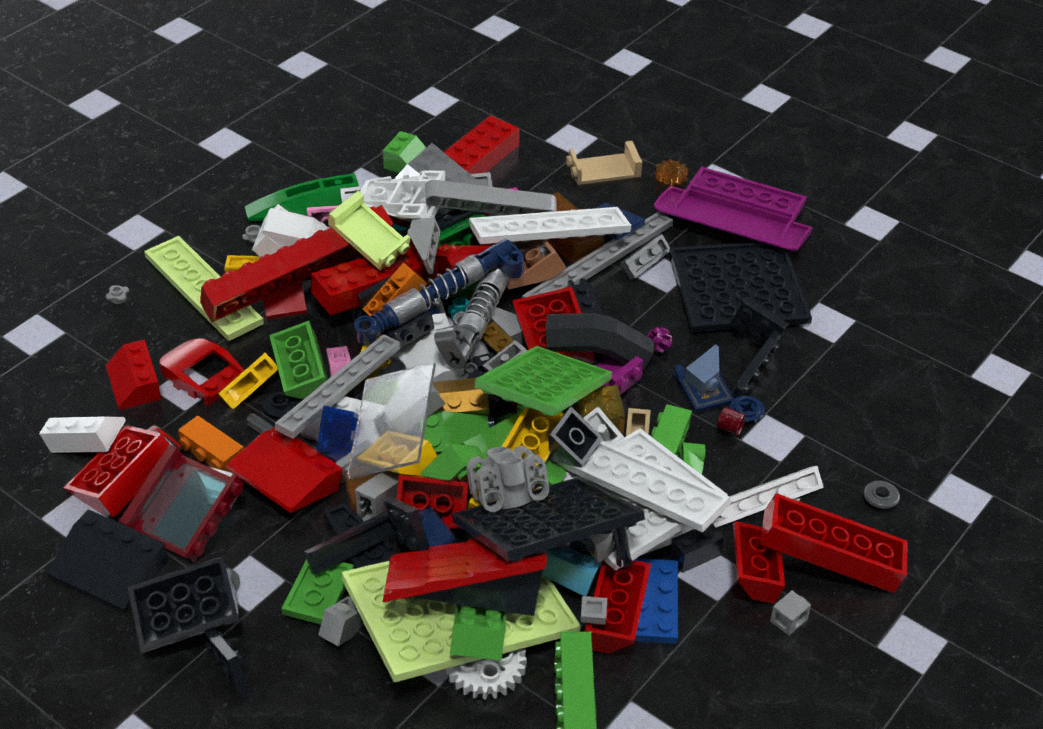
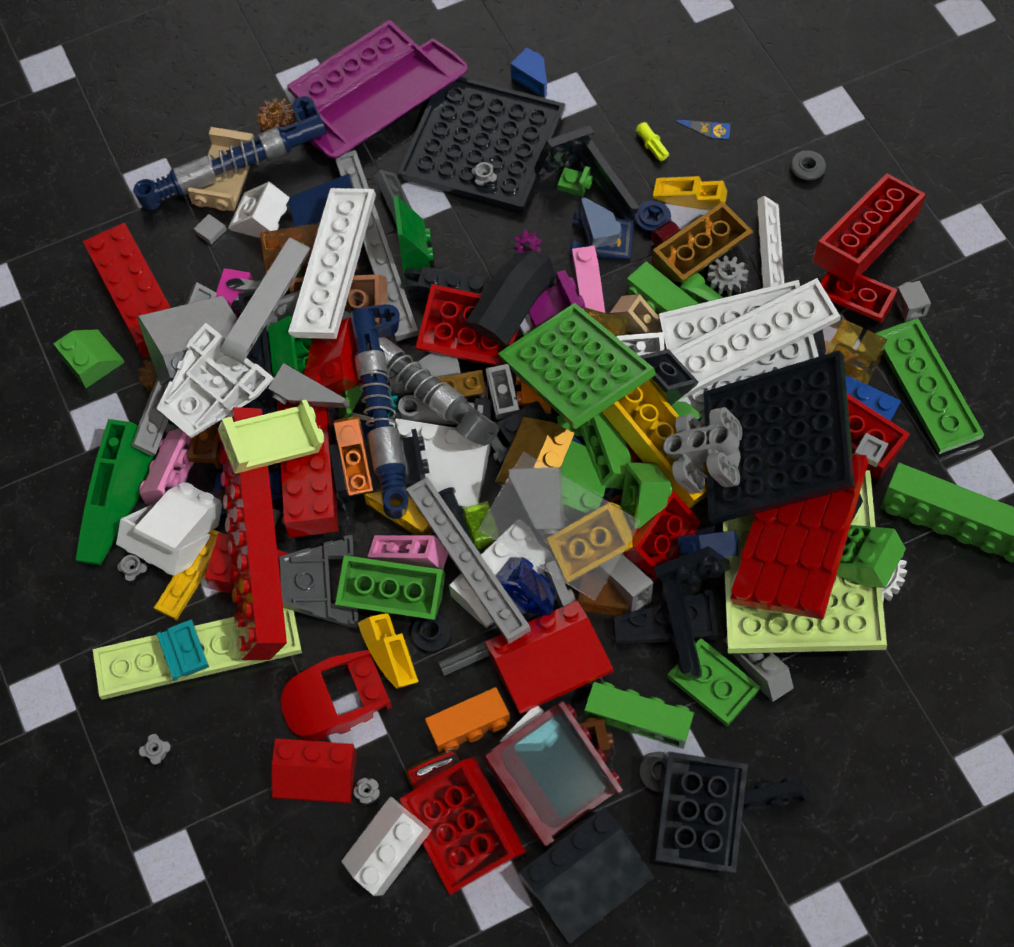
camera: 60 degrees left, 20 degrees up
(130, 412) = (373, 793): none -> light grey plate
(195, 273) = (182, 650): none -> teal plate
(232, 530) = (603, 739): none -> reddish brown bracket
(264, 549) = (639, 715): none -> bright green brick
(285, 314) = (307, 582): none -> dark grey wing
(551, 176) = (210, 229): none -> light grey tile
(583, 191) = (259, 210): none -> white slope
(610, 264) = (412, 237): none -> green slope
(637, 171) = (203, 171): none -> dark blue piece
(652, 386) = (587, 277): none -> bright pink slope
(698, 579) = (861, 362): none -> clear yellow piece
(703, 290) = (484, 168): none -> light grey plate
(707, 655) = (929, 387): none -> bright green plate
(722, 472) = (727, 275): none -> light grey gear
(736, 437) = (700, 243): none -> pearl gold slope
(744, 351) = (575, 181): none -> bright green bracket
(789, 425) = (690, 192): none -> yellow slope
(821, 384) = (651, 141): none -> neon yellow axle
(828, 289) = (530, 71): none -> blue slope
(867, 420) = (710, 129): none -> sticker

